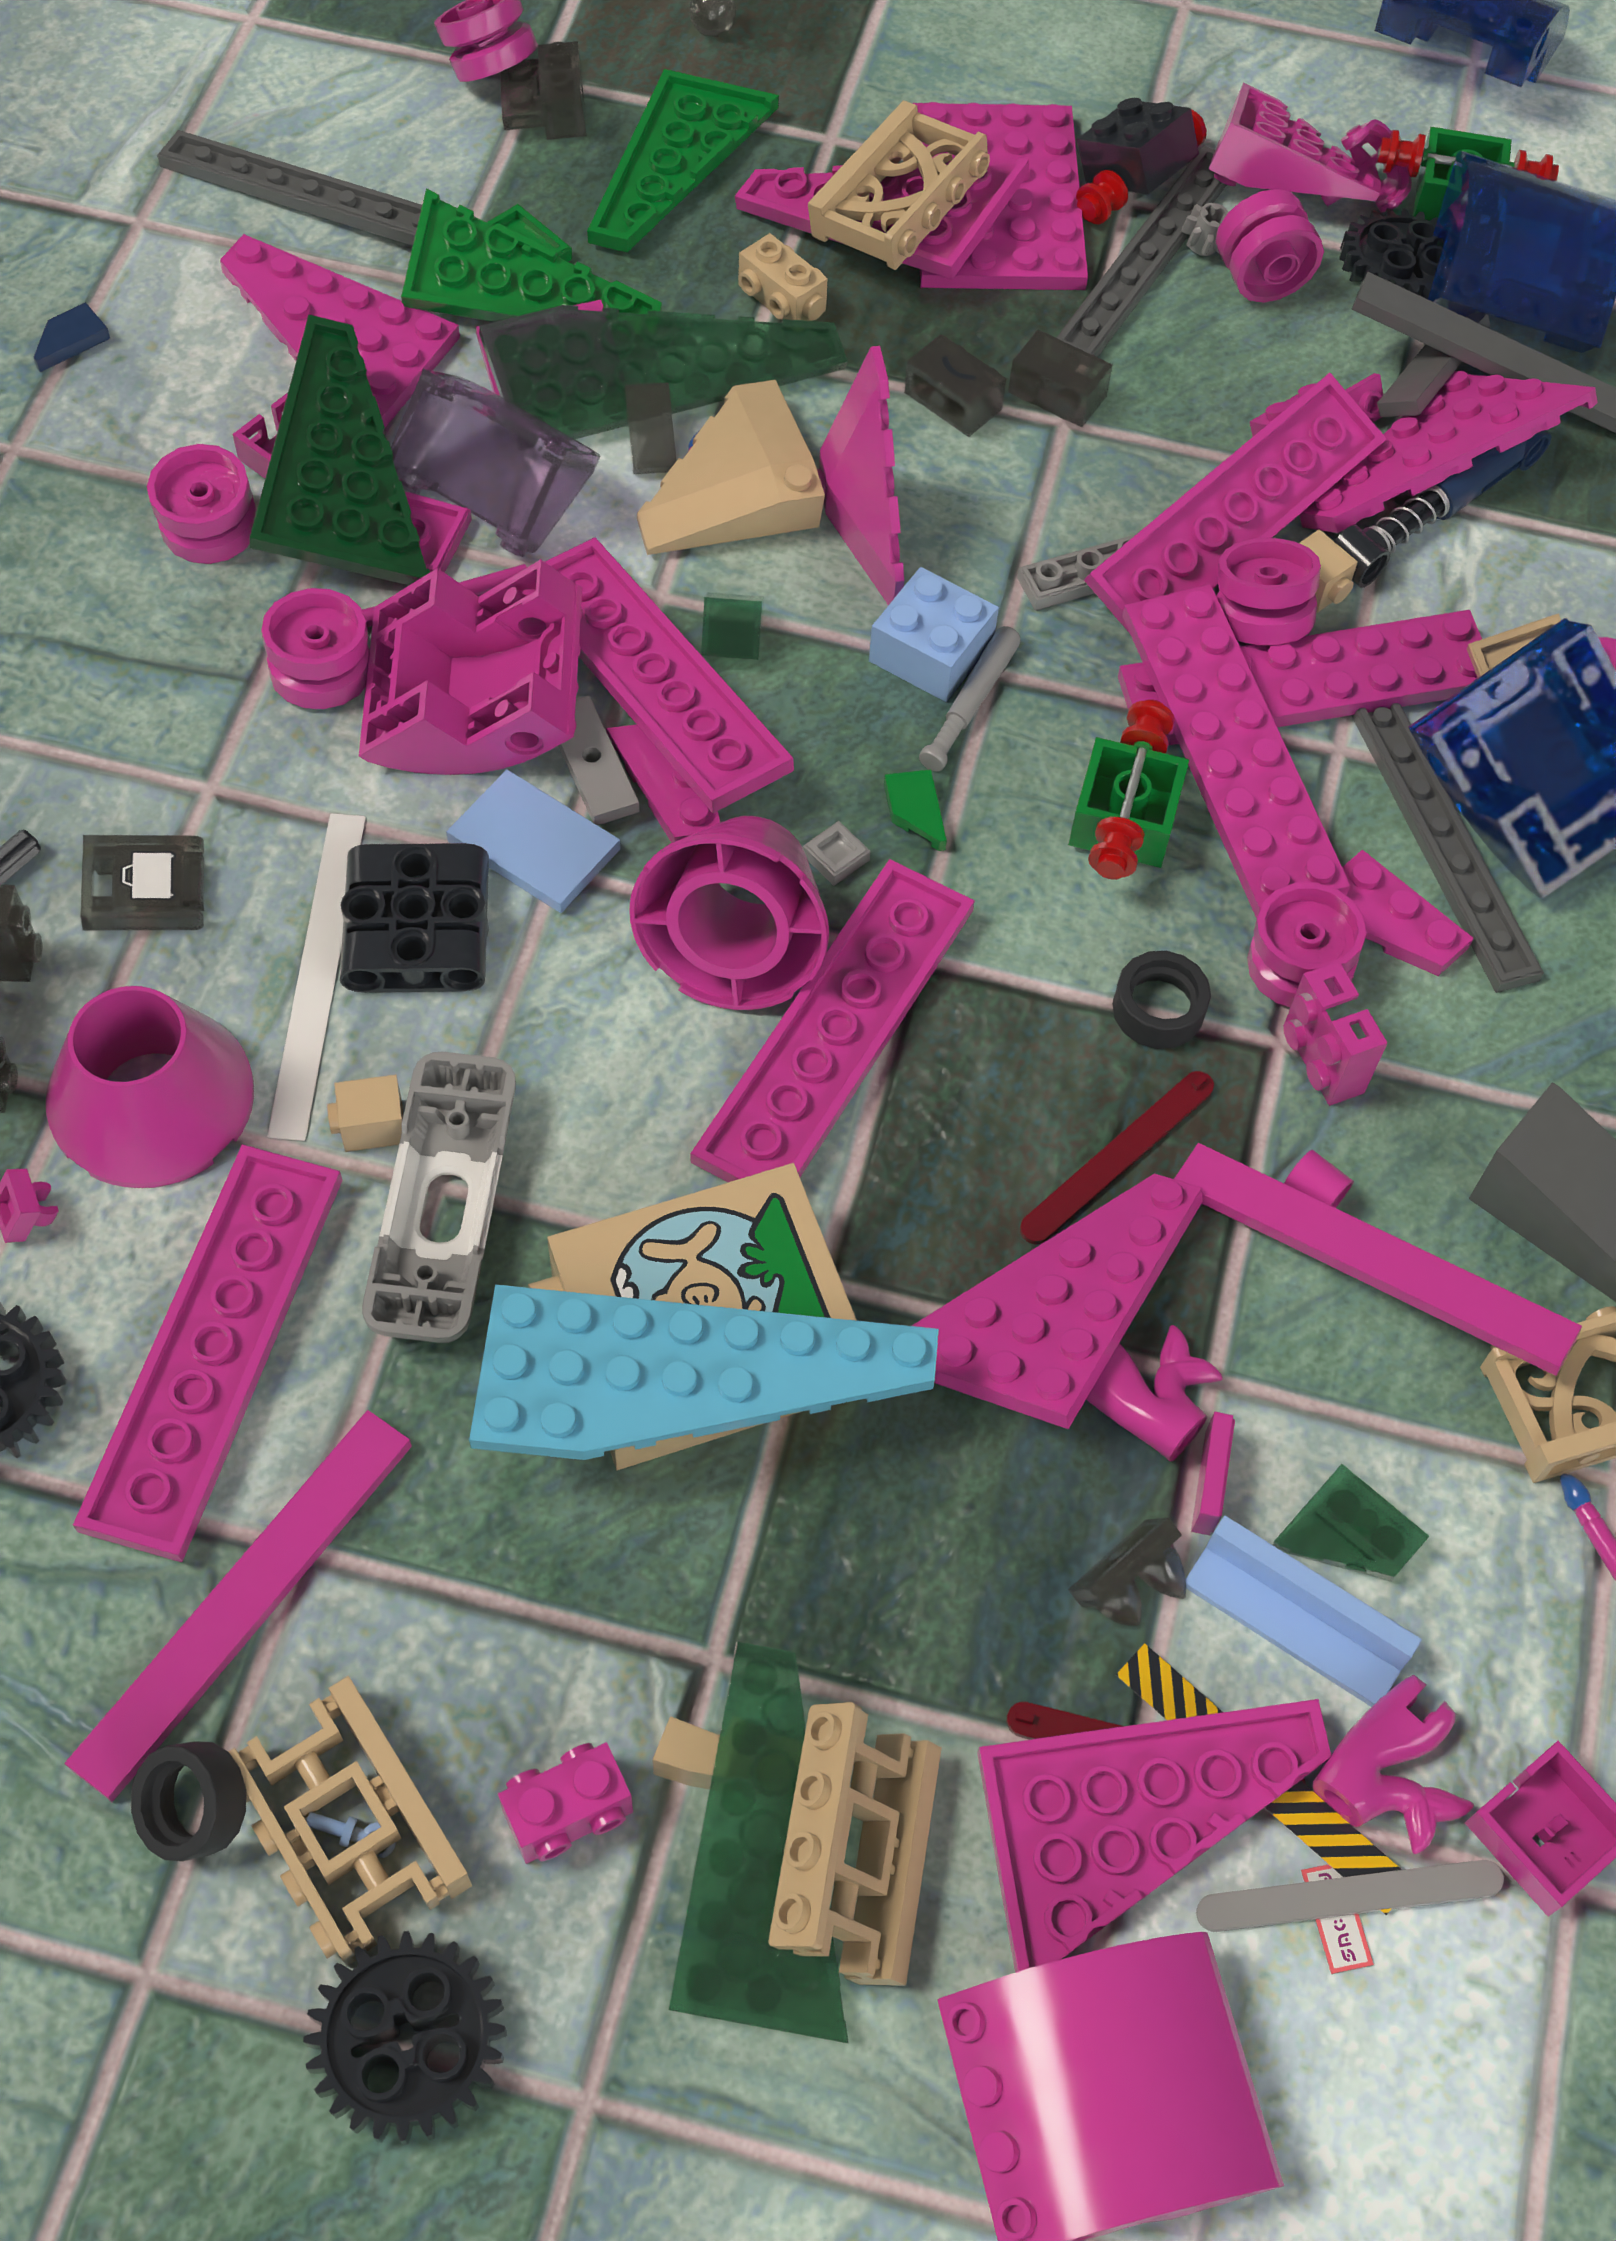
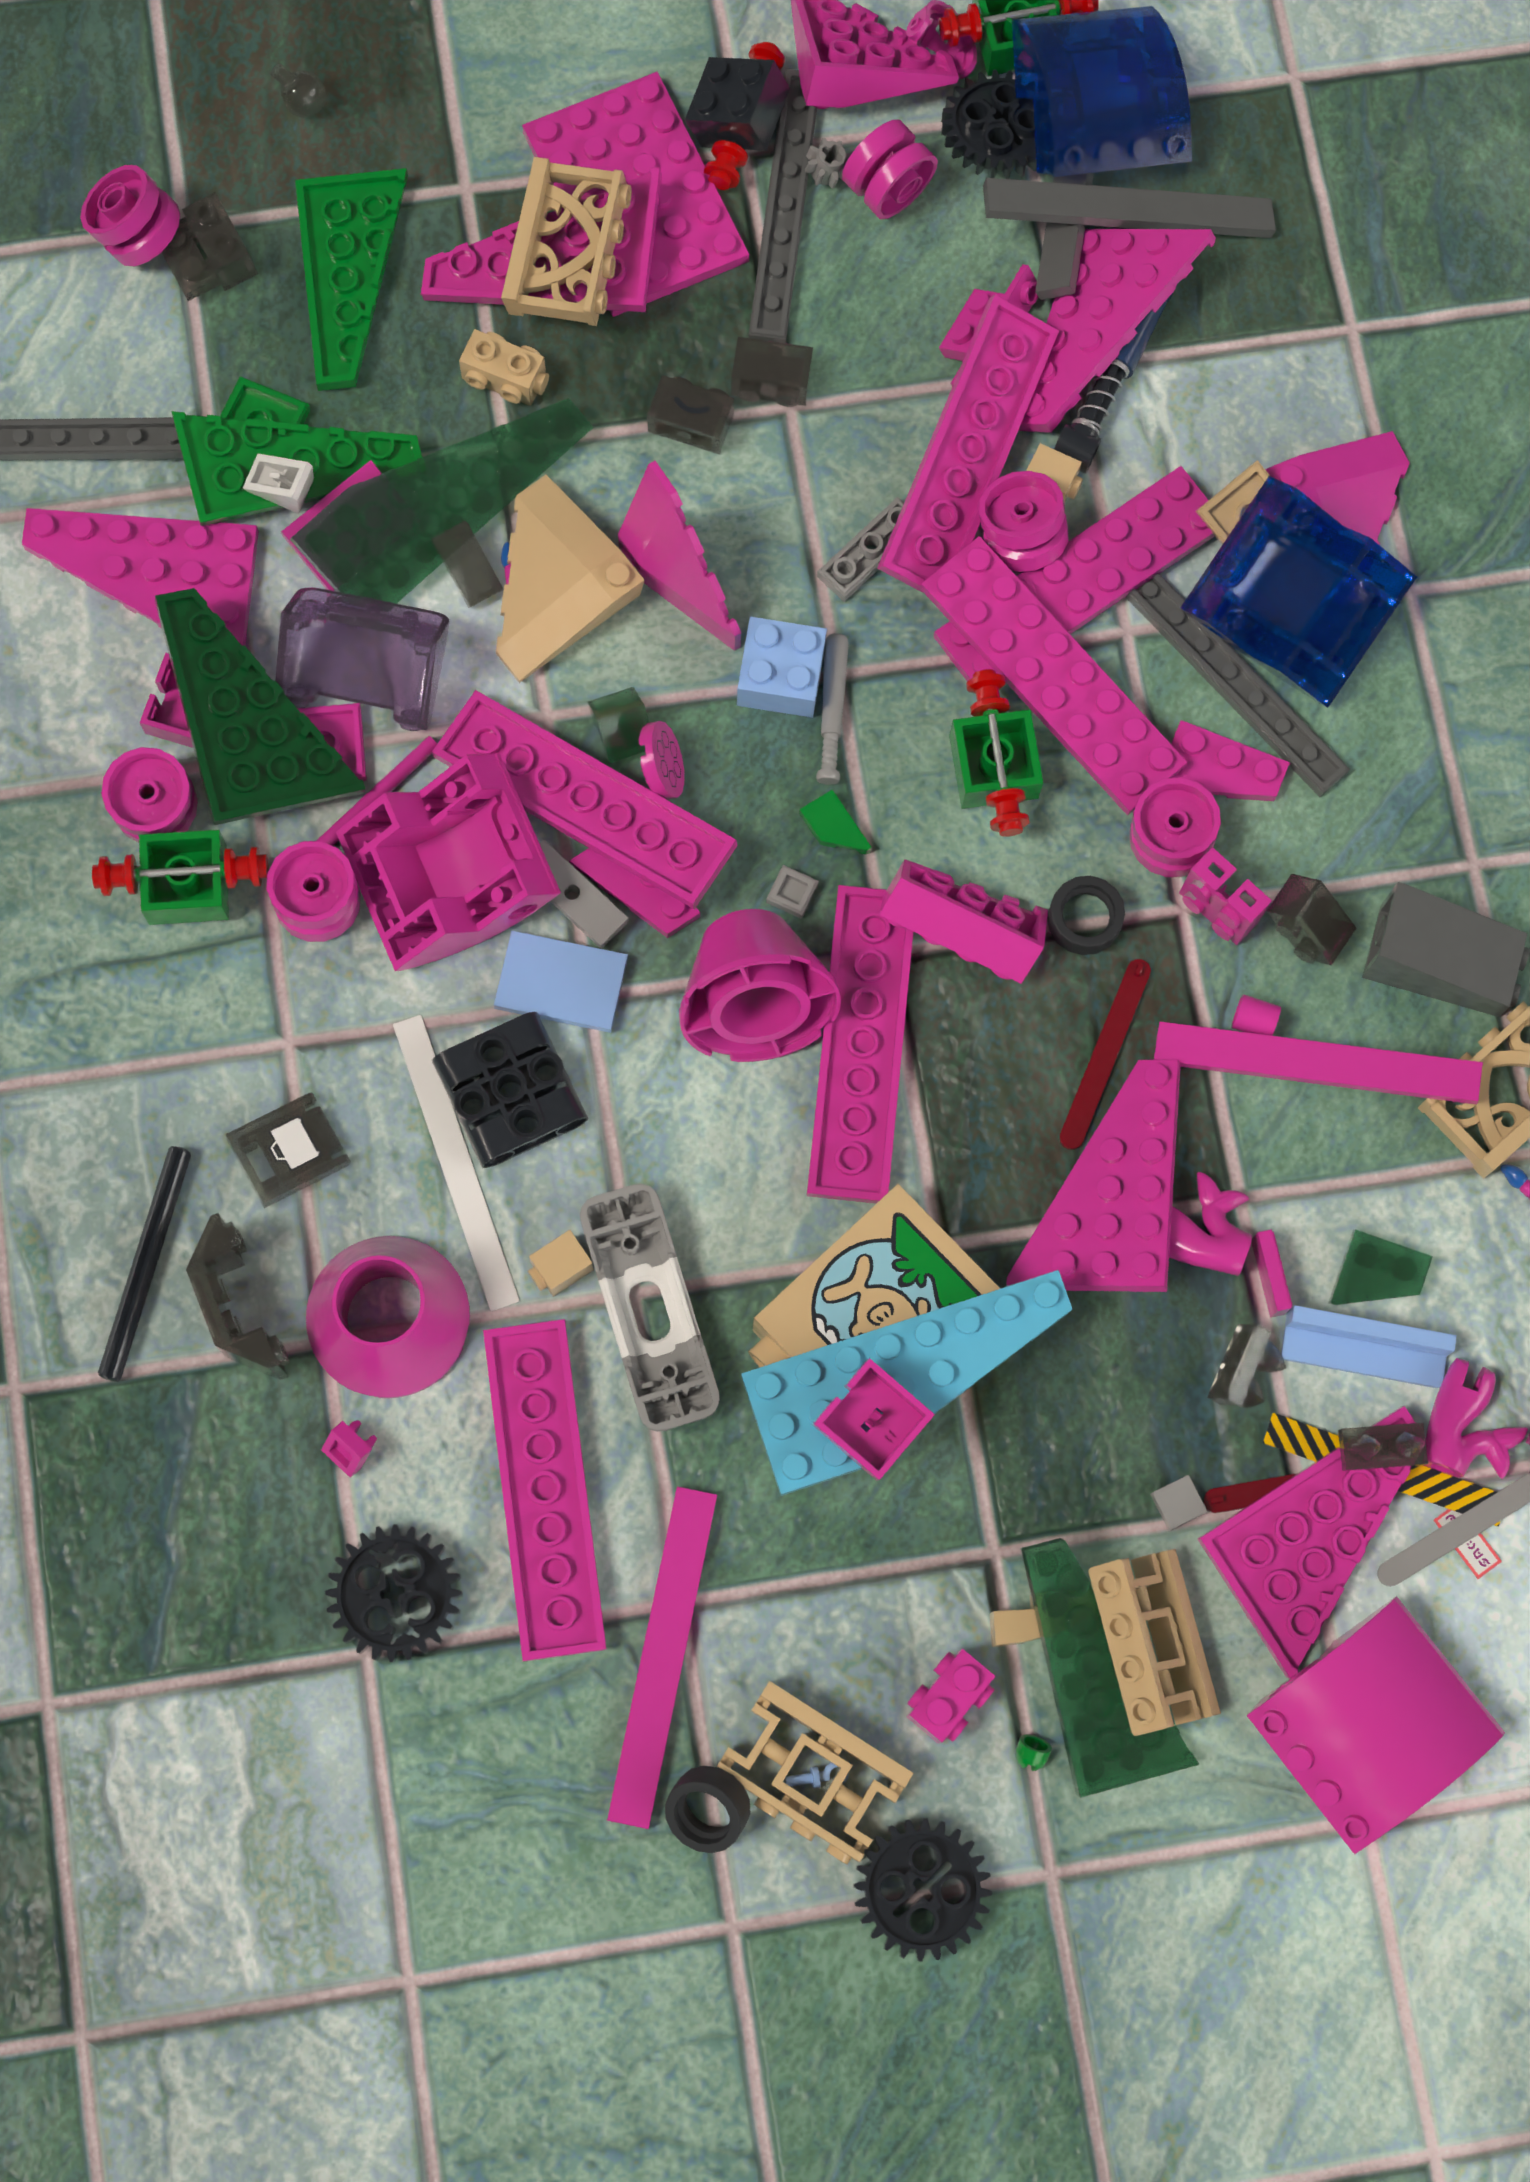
camera: 25 degrees left, 15 degrees up
(186, 580) = (182, 875): none -> green brick
(503, 285) = (280, 480): none -> white slope
(634, 1420) = (888, 1432): none -> dark pink piece
(638, 1925) = (1032, 1751): none -> green hinge
(755, 664) = (663, 760): none -> dark pink tile
(974, 1699) = (1178, 1502): none -> light grey tile
(1014, 940) = (966, 920): none -> dark pink wedge
(1268, 1735) = (1382, 1446): none -> clear smoke tile
(1429, 1096) = (1311, 920): none -> clear smoke brick

